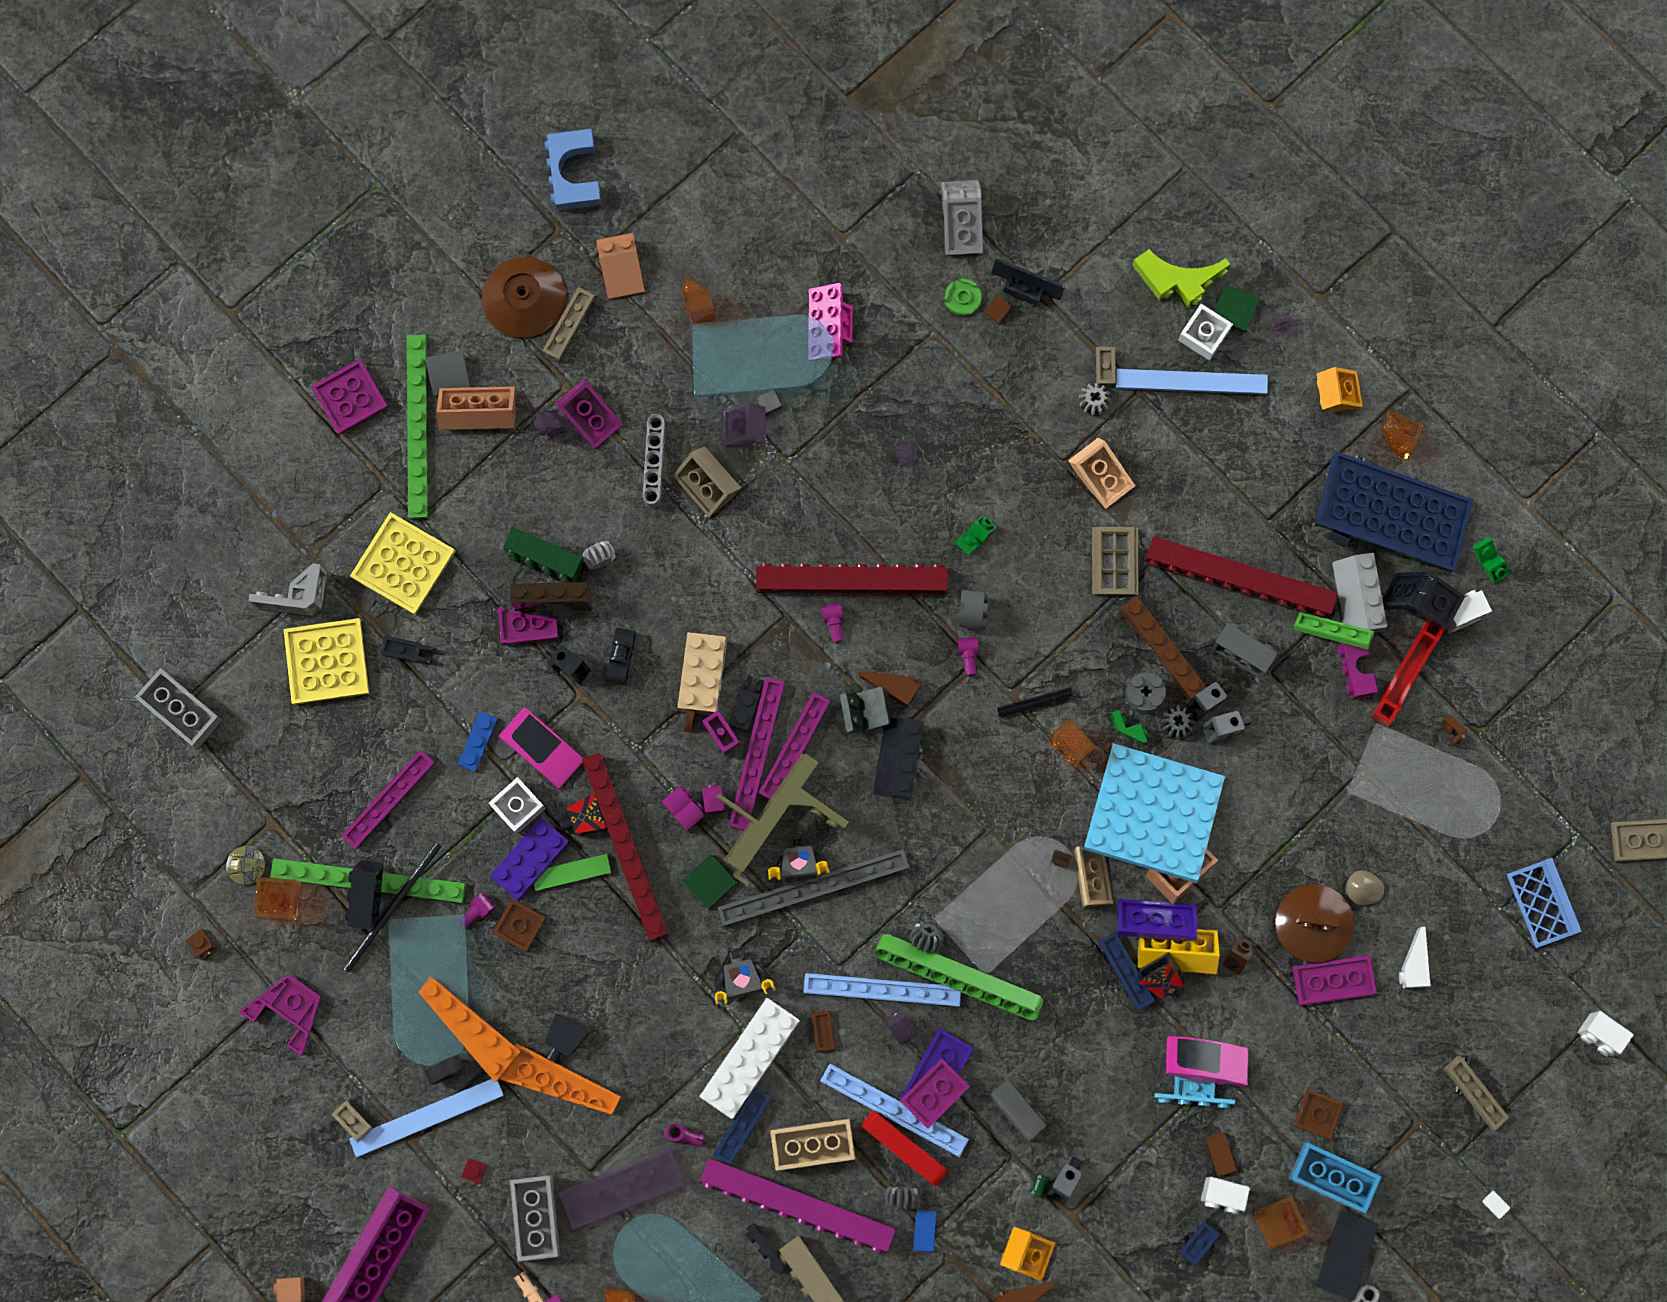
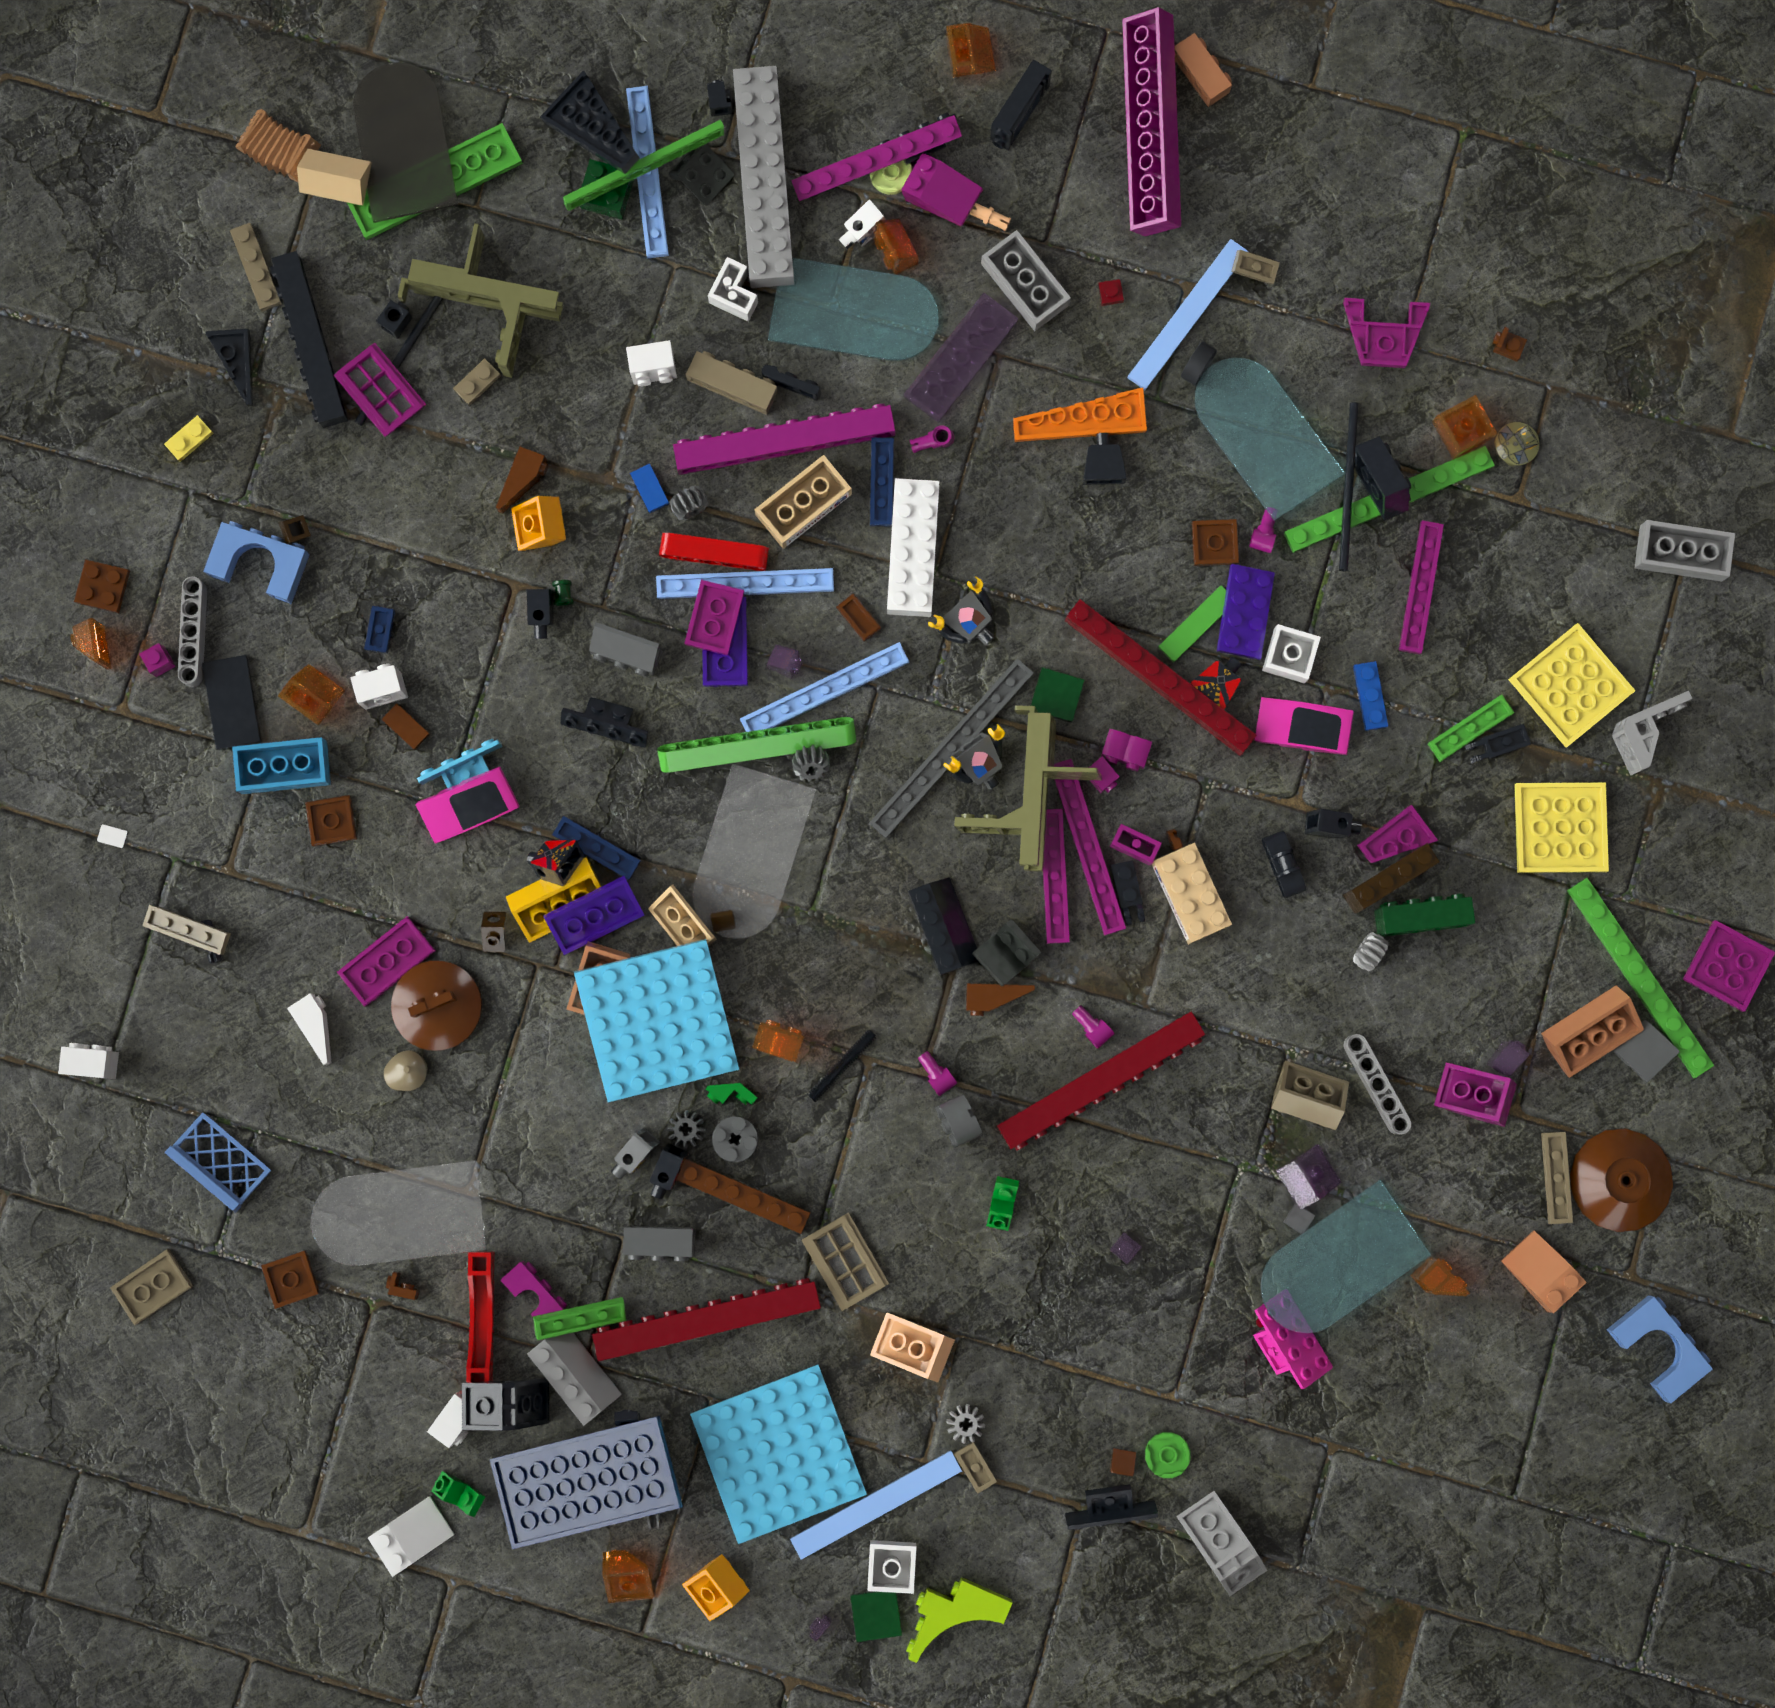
camera: 145 degrees right, 5 degrees up
(419, 674) = (1470, 728): none -> bright green tile
(477, 1036) = (1186, 413): orange wing -> none
(1062, 1066) = (605, 720): none -> black bracket
(1241, 456) = (778, 1454): none -> medium azure plate
(1534, 784) = (290, 1279): none -> reddish brown plate
(1542, 550) = (411, 1536): none -> white slope

